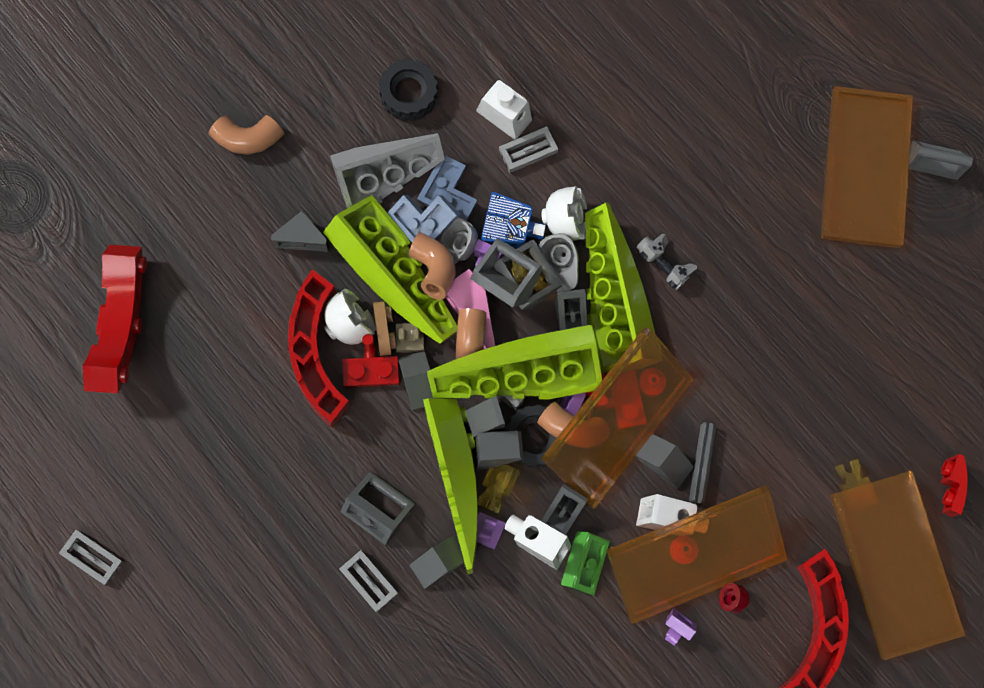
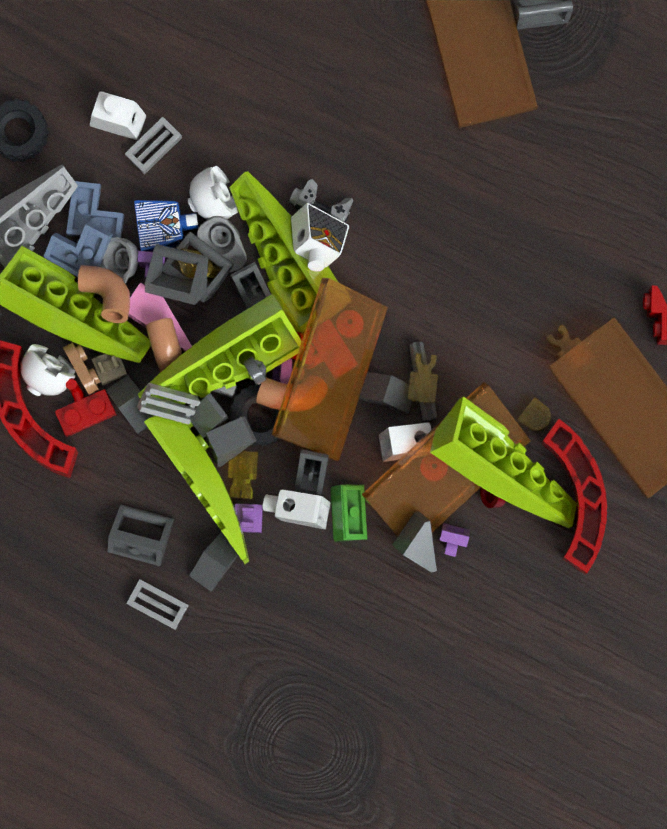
camera: 15 degrees left, 5 degrees up
(462, 410) = (183, 416): none -> light grey tile
(549, 390) = (256, 370): none -> dark grey tile
(643, 617) = (417, 542): none -> slope
(653, 287) = (317, 236): none -> torso
(703, 464) = (423, 383): none -> clear yellow plate
(742, 560) = (486, 456): none -> lime wedge
(800, 537) = (535, 416): none -> clear yellow tile

